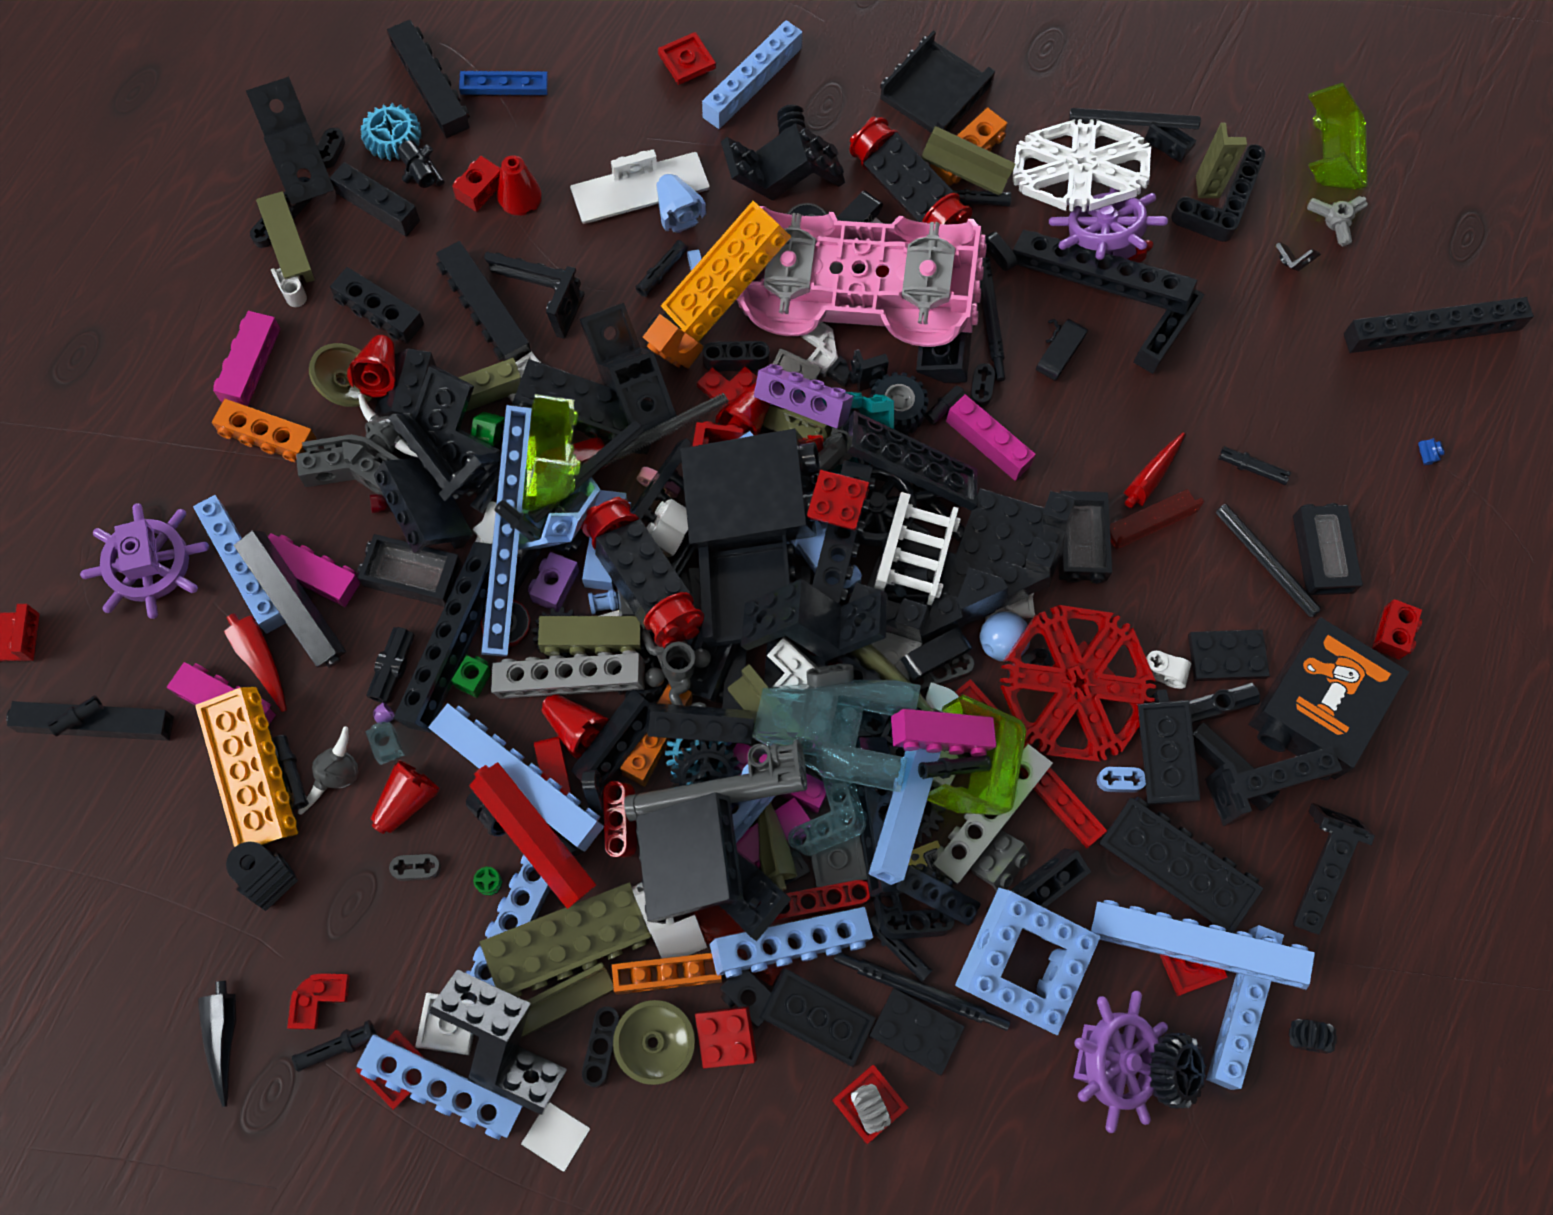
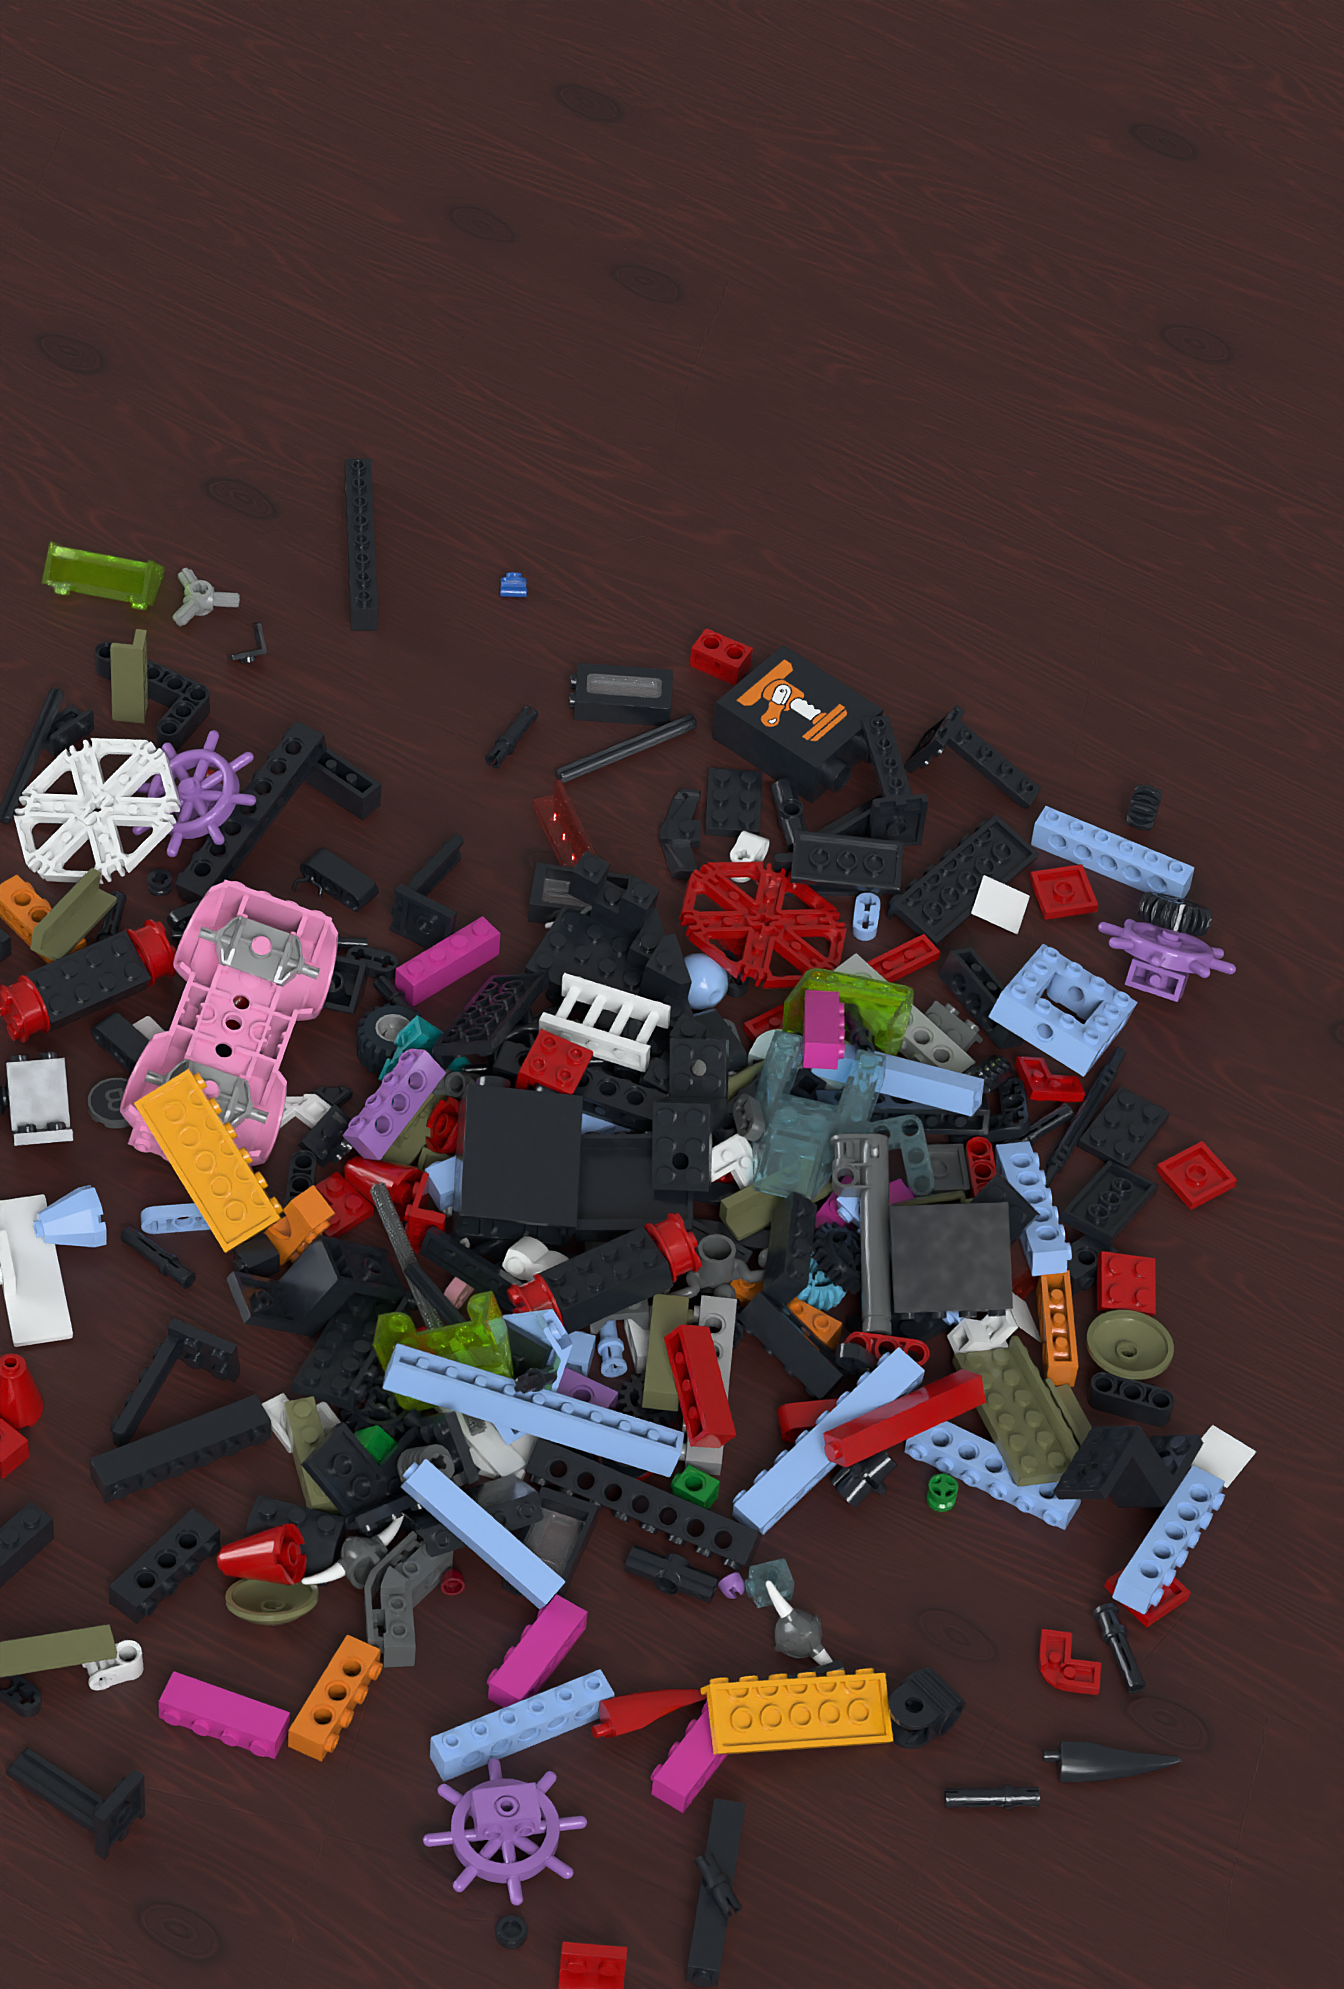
camera: 85 degrees left, 20 degrees down
(65, 576) = (511, 1932): none -> black tile
(159, 293) = (102, 1817): none -> black bracket
(182, 940) = (992, 1797): none -> black pin
(290, 599) = (583, 1658): brick -> none
(377, 501) = (482, 1533): none -> light blue brick
(402, 797) = (841, 1563): red cone -> none
(415, 861) = (914, 1565): dark grey beam -> none
(442, 1035) = (1097, 1544): white tile -> none
(448, 458) = (434, 1454): none -> dark grey piece
(543, 659) = (699, 1386): none -> red brick
(573, 723) = (766, 1389): red cone -> none
(868, 371) = (347, 1059): black bracket -> none
(870, 1108) = (1206, 1159): light grey gear -> none
(948, 951) = (1043, 1086): none -> red plate
(1033, 220) = (159, 875): none -> black bush
(1063, 407) = (417, 915): none -> black bracket
(1152, 474) = (510, 827): red piece -> none
(1162, 895) = (1000, 904): none -> white sticker
(1180, 614) = (681, 833): none -> black plate
(1203, 945) = (1053, 868): light blue brick -> none

